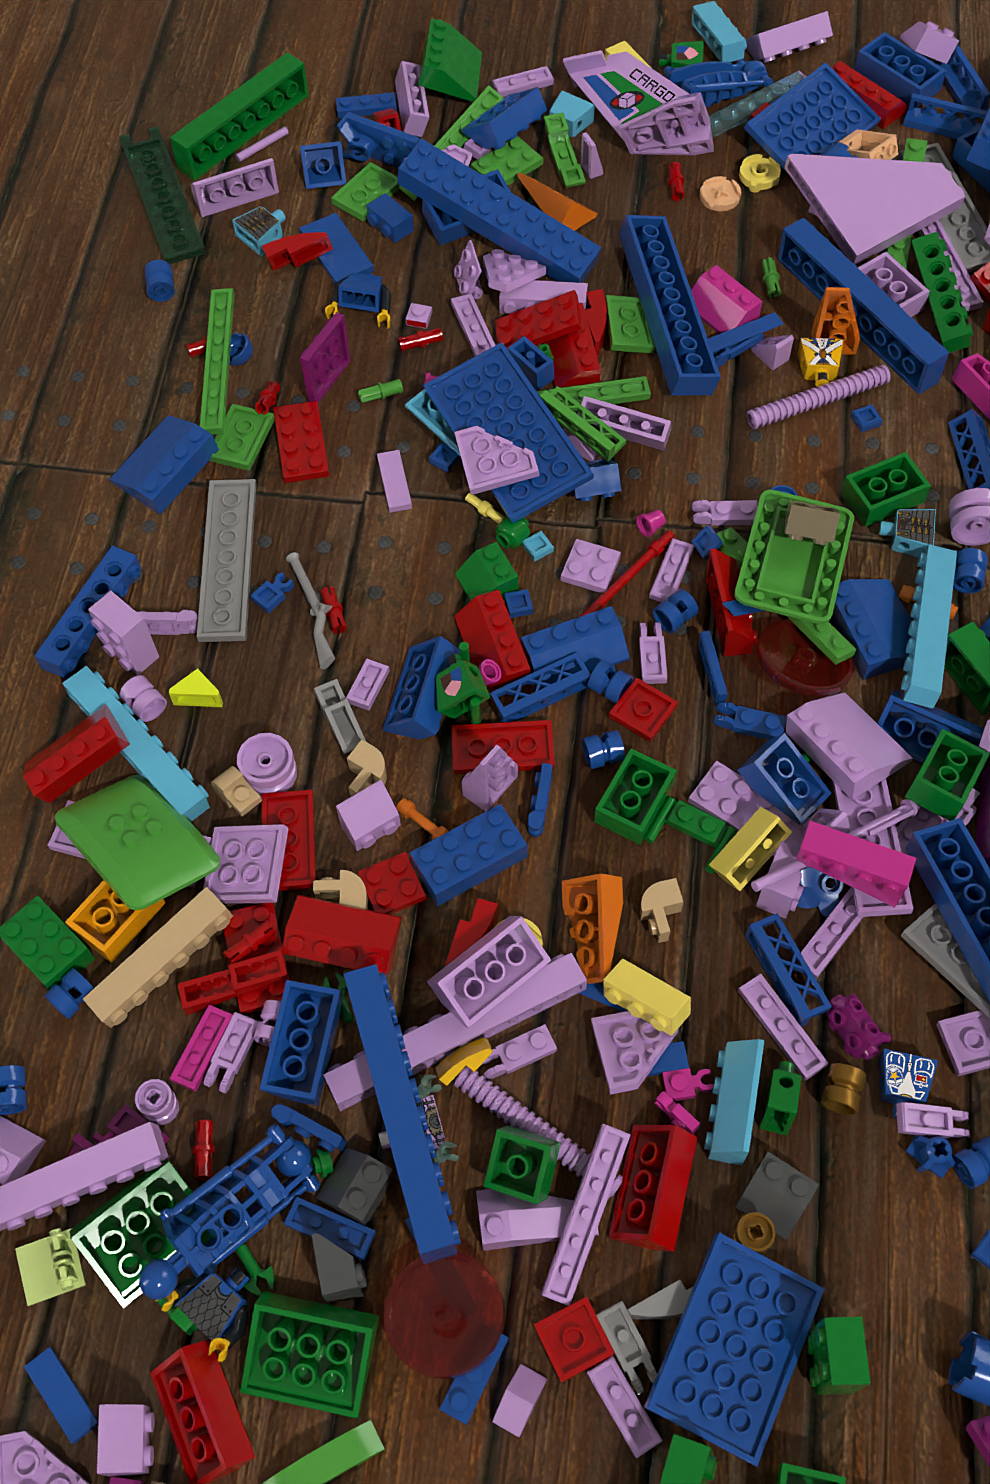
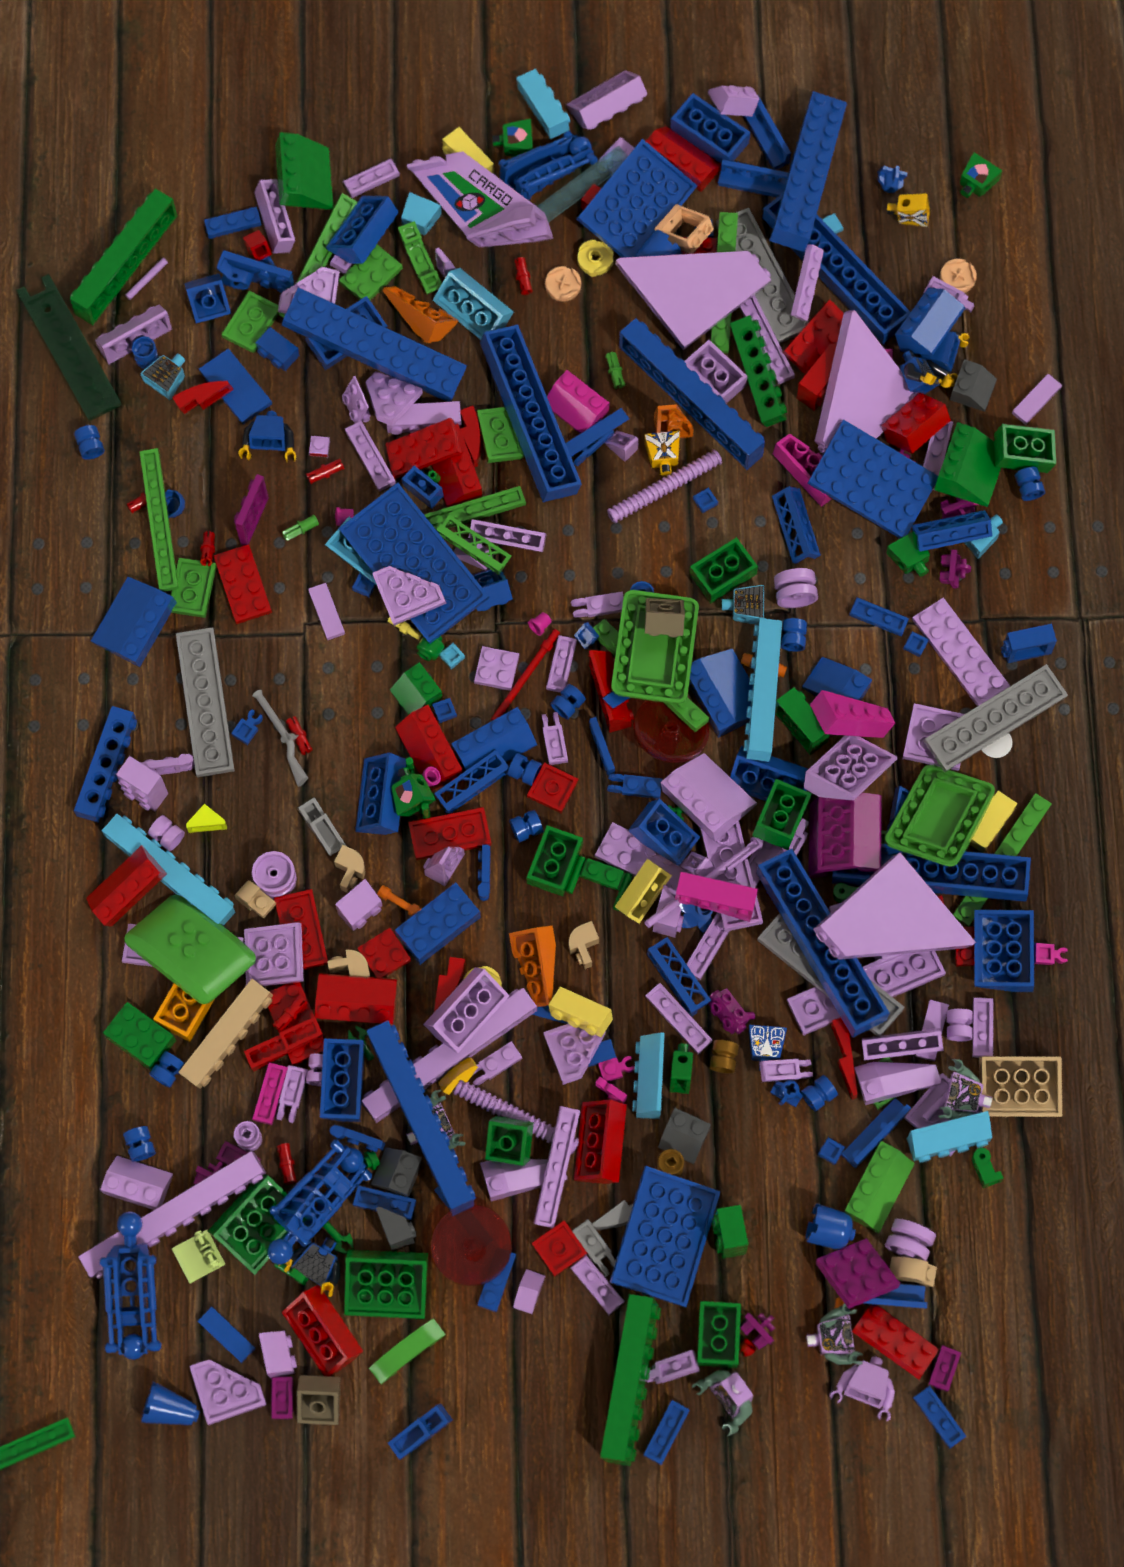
camera: 10 degrees left, 10 degrees up
(241, 200) = (144, 351): none -> blue wheel
(367, 684) = (337, 796): lavender plate -> none
(612, 196) = (471, 303): none -> medium azure slope

